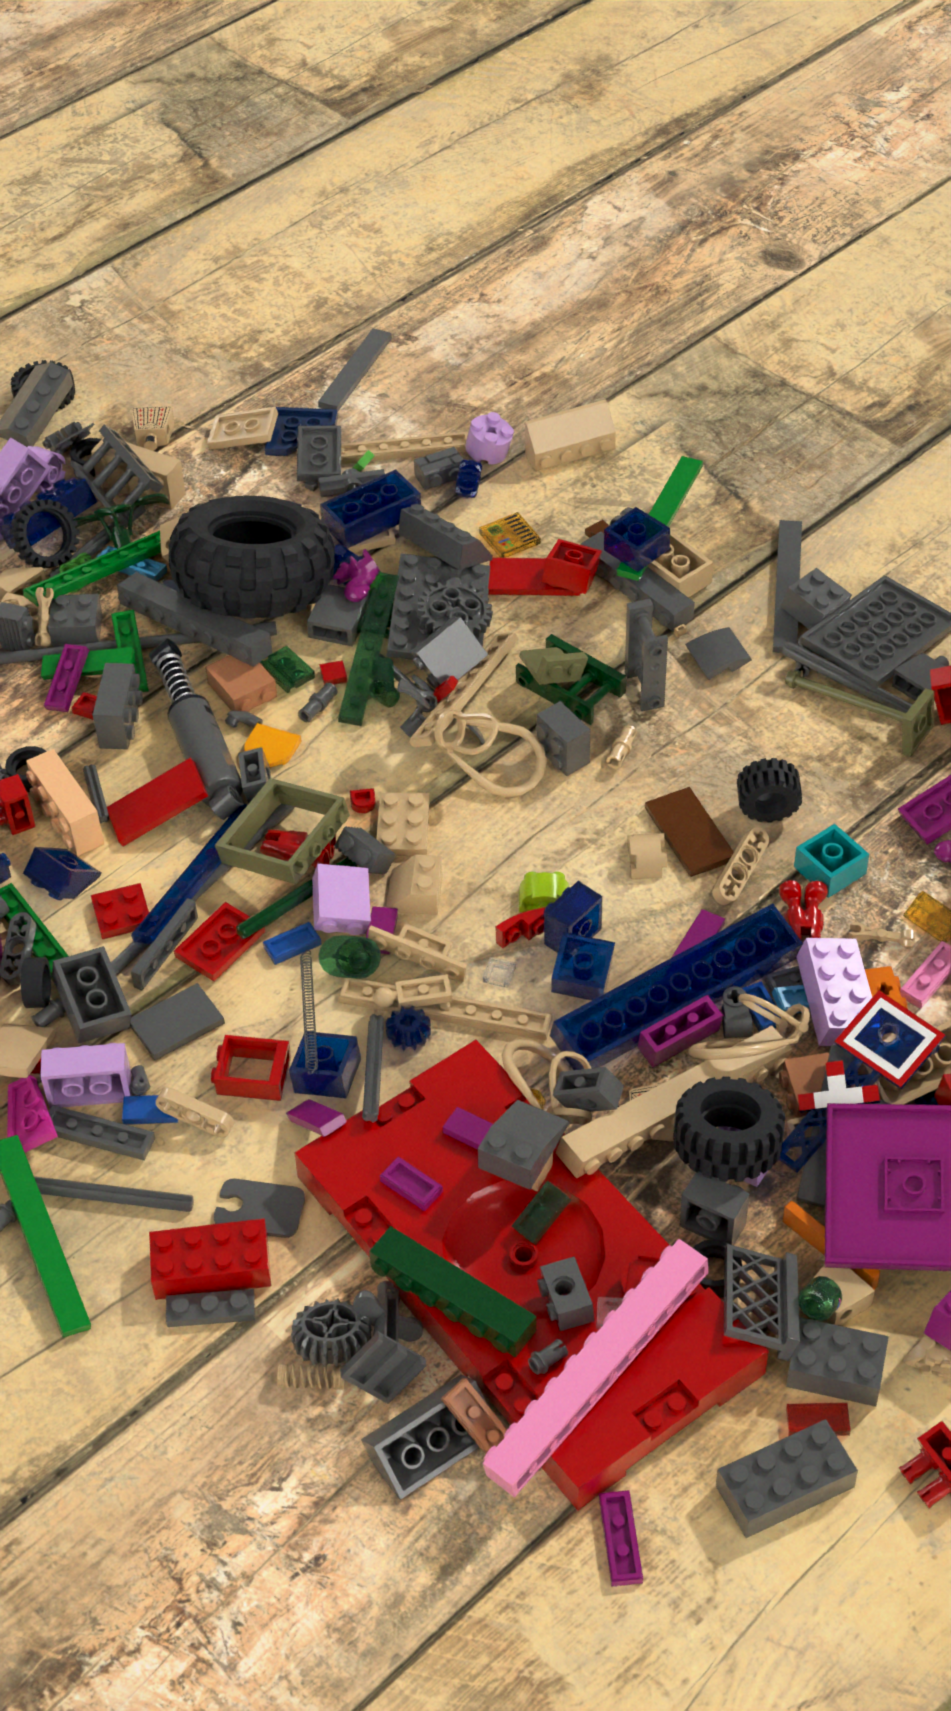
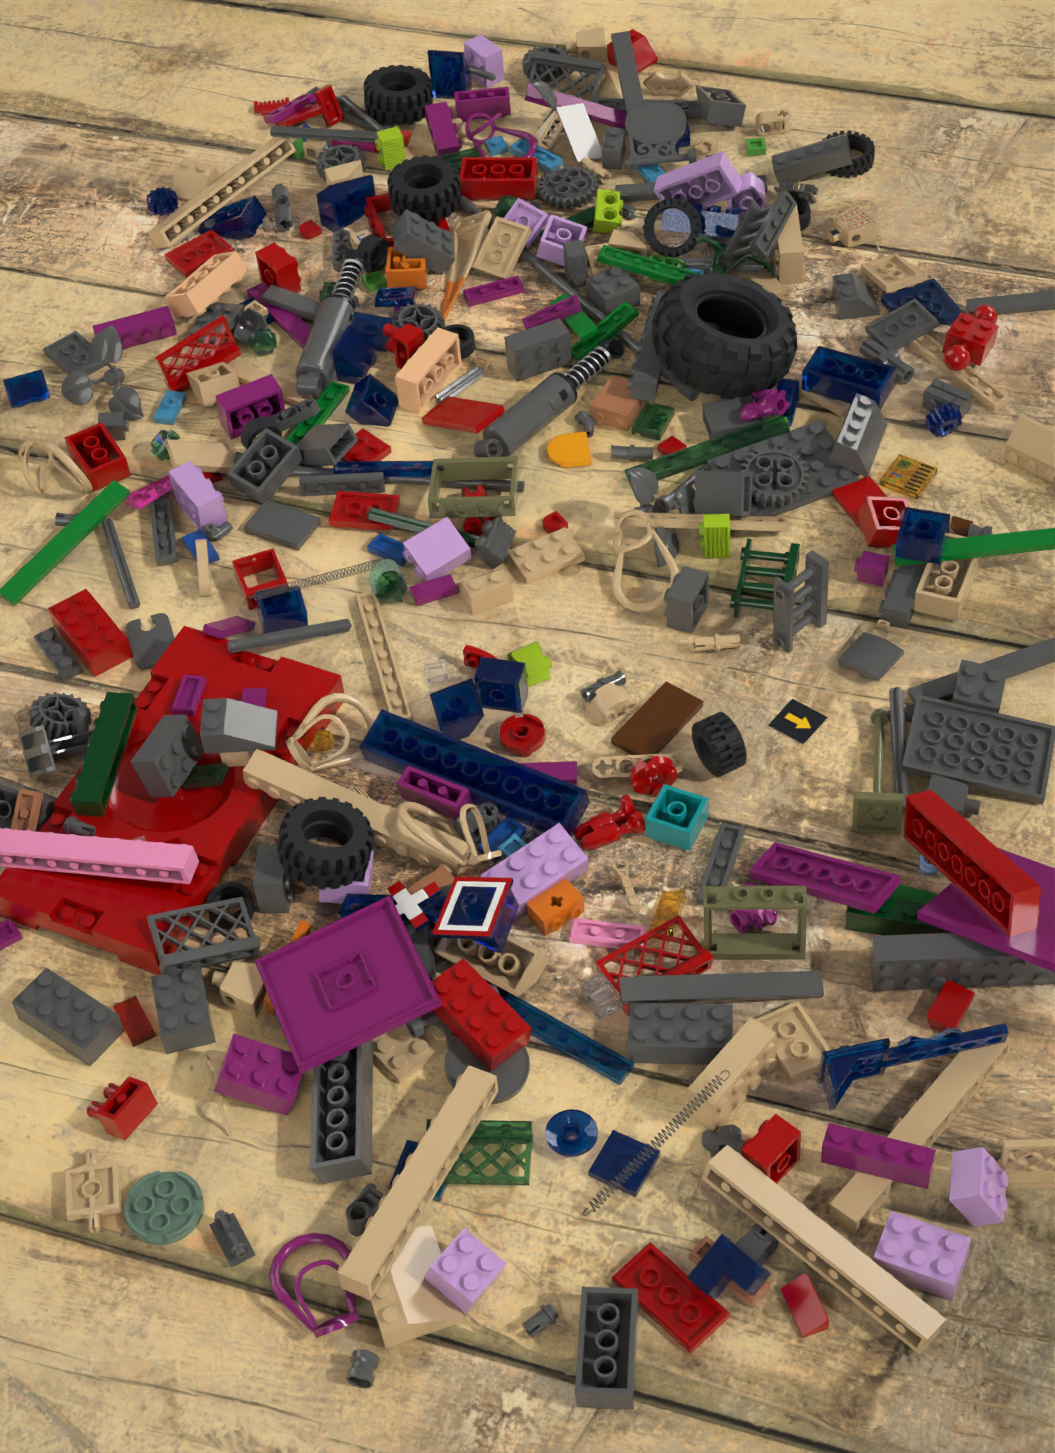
camera: 65 degrees right, 0 degrees up
(43, 637) = (591, 270): tan piece -> none
(101, 924) = (326, 444): none -> dark grey brick
(161, 514) = (768, 282): none -> tan tile
(245, 470) = (853, 297): none -> dark grey slope
(253, 771) = (530, 449): dark grey brick -> none
(364, 460) = (912, 355): bright green tile -> none
(380, 417) = (970, 338): none -> red brick
(383, 687) = (670, 477): clear green piece -> none
(408, 1028) = (347, 643): clear blue gear -> none
(415, 992) = (377, 630): tan plate -> none
(420, 948) = (425, 616): tan bracket -> none
(445, 688) = (687, 509): red tile -> none
(489, 438) = (1002, 409): lavender brick -> none
(494, 684) = (716, 536): none -> lime brick
(507, 1225) = (168, 756): none -> dark grey brick
(554, 666) = (757, 555): olive bracket -> none
(569, 1309) = (135, 815): dark grey brick -> none
(588, 1089) = (312, 748): dark grey brick -> none
(613, 602) = (872, 568): none -> magenta brick
(618, 850) = (589, 692): none -> dark grey pin
(633, 948) = (522, 745): none -> red plate
(754, 736) = (798, 721): none -> black sticker
(771, 862) = (652, 775): none -> red plate
(820, 1298) = (216, 967): clear green head -> none
(901, 857) = (722, 858): none -> dark grey plate

